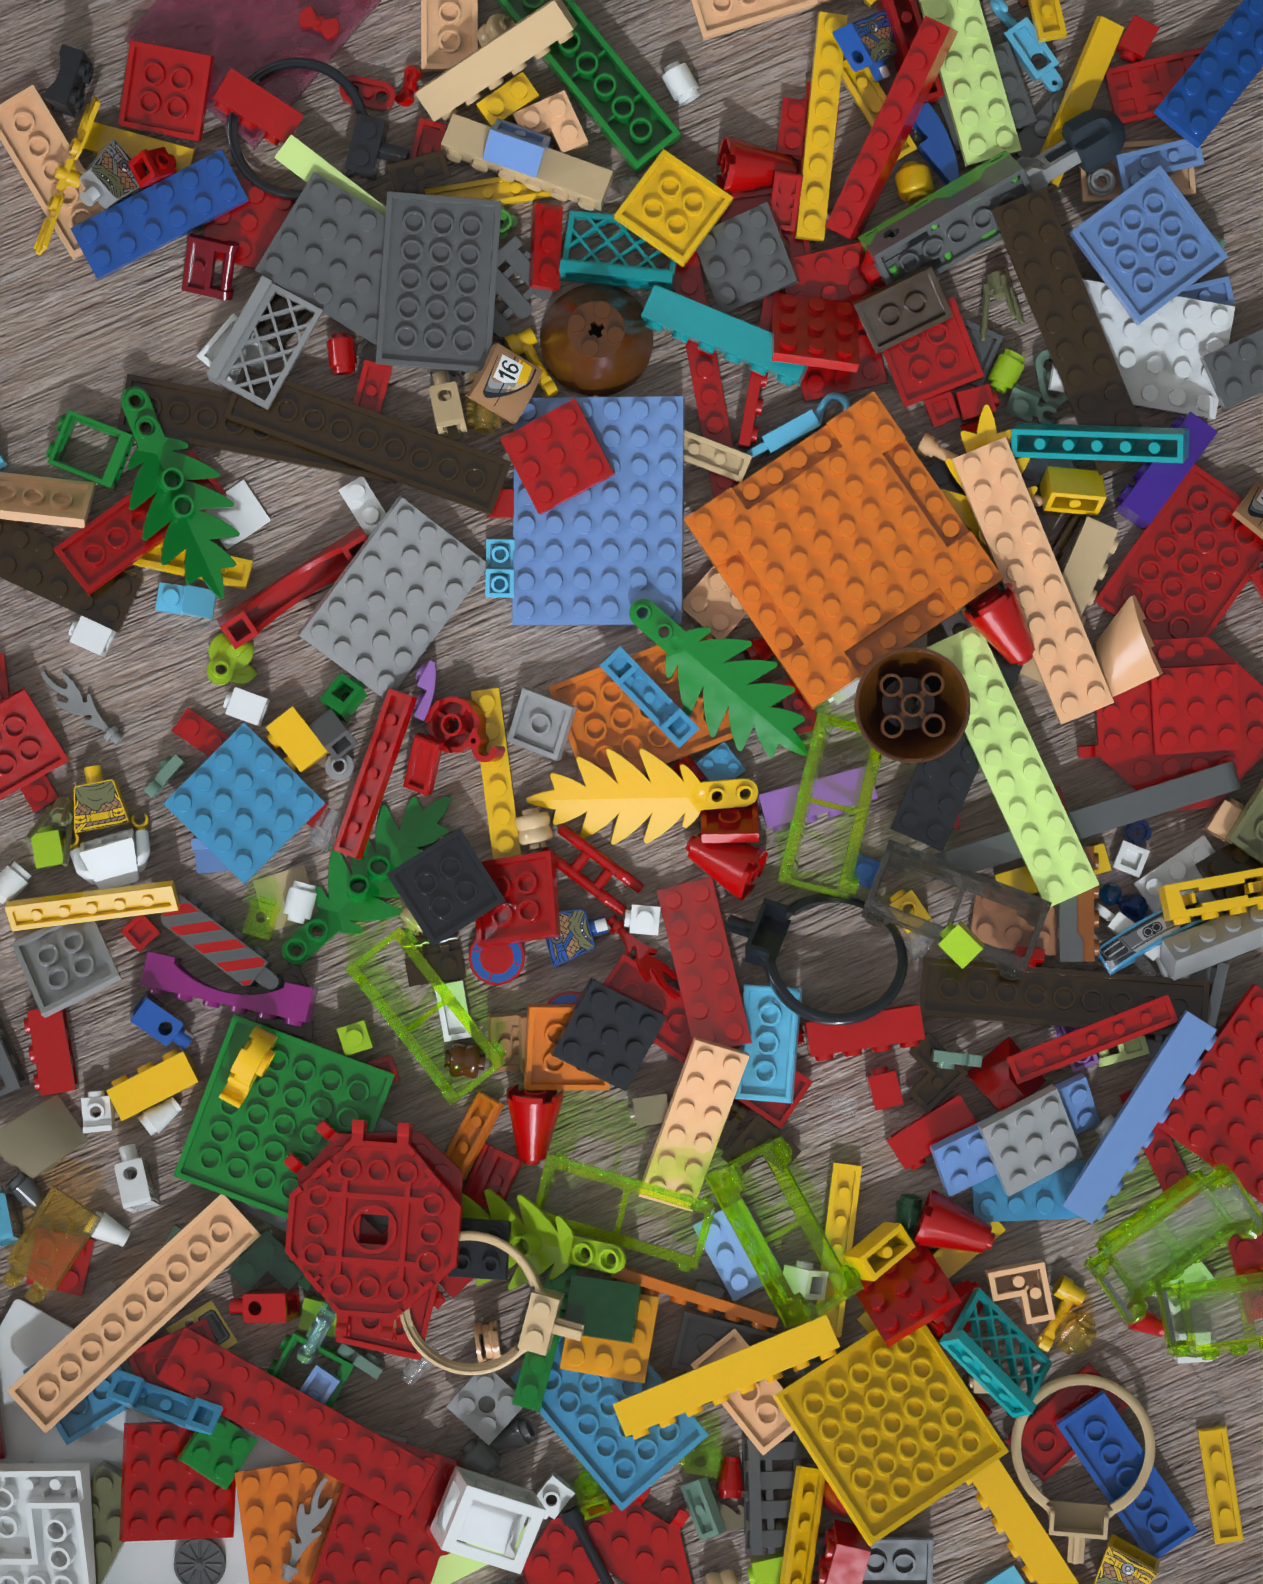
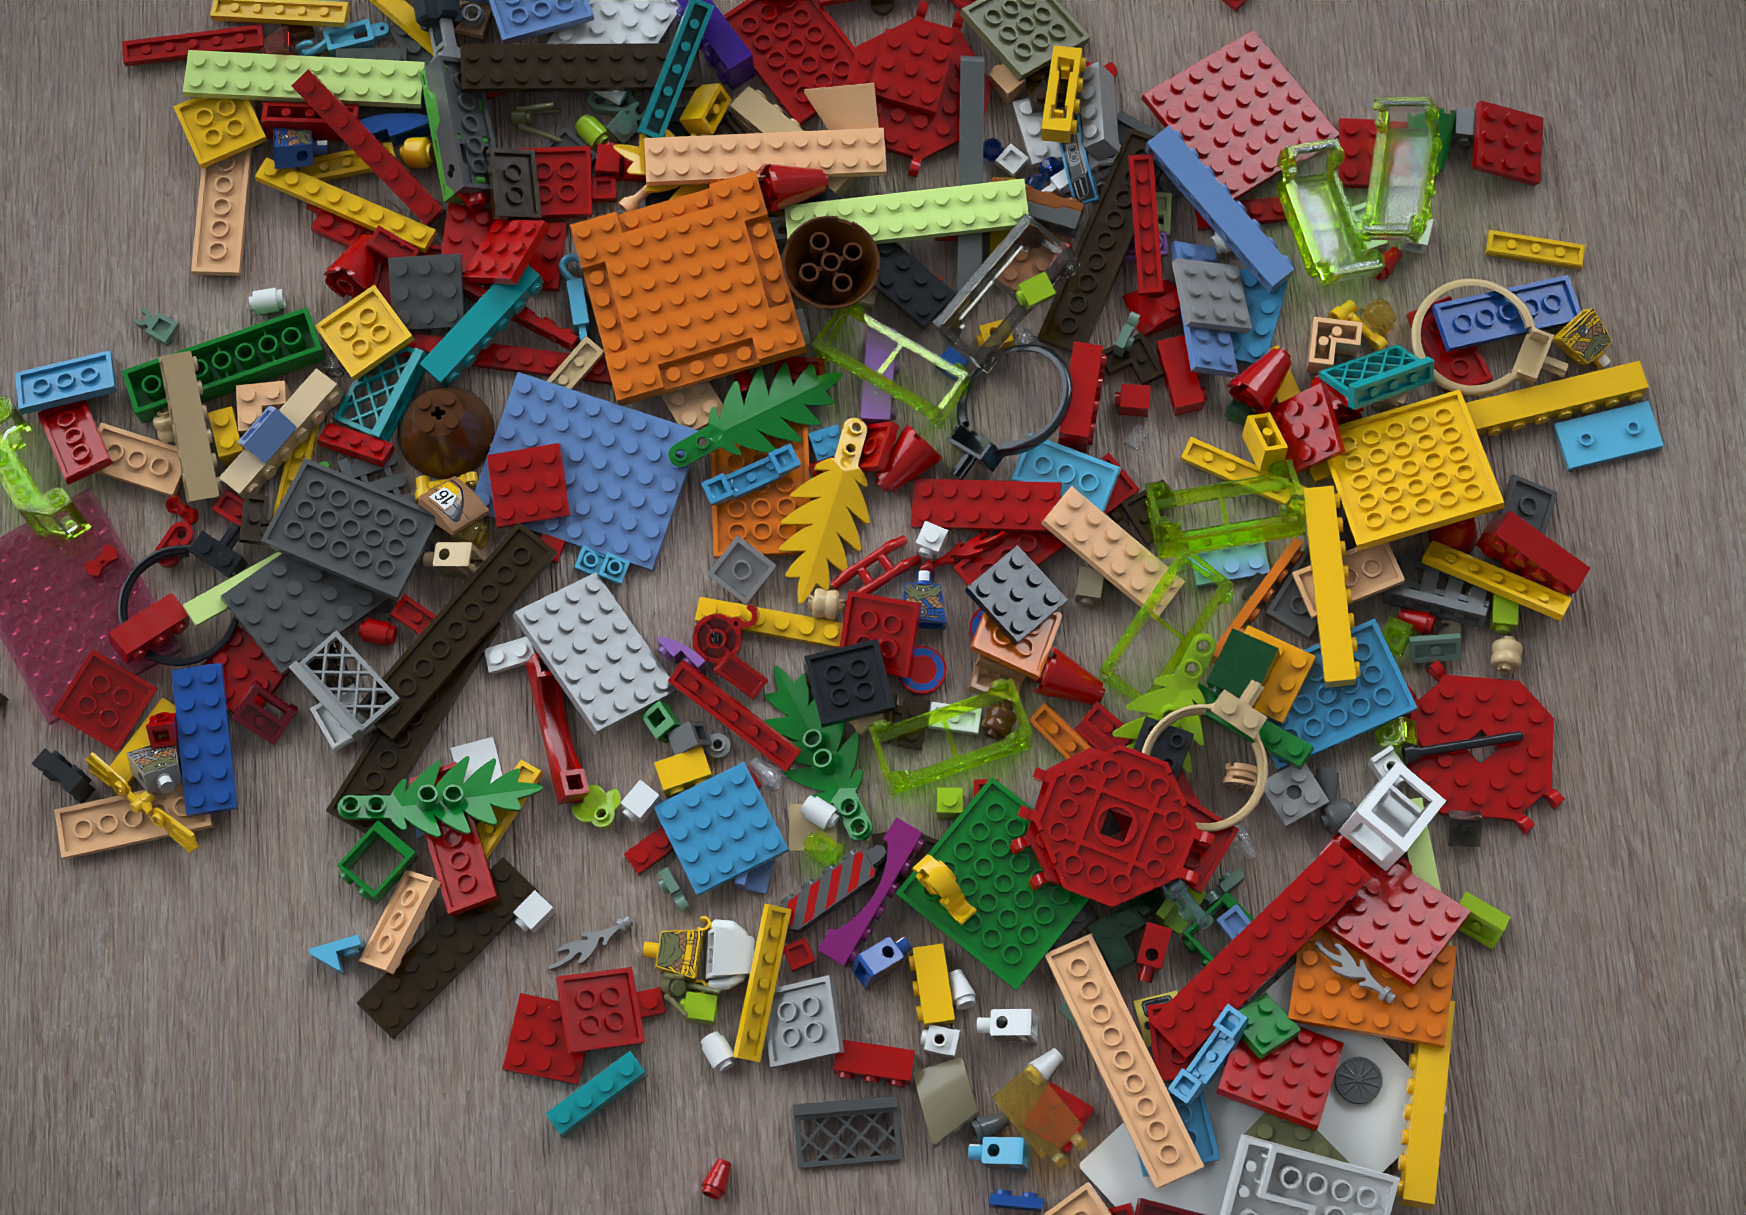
camera: 65 degrees left, 15 degrees down
(185, 600) = (533, 827): medium azure slope -> none
(806, 1280) = (1269, 503): brick -> none

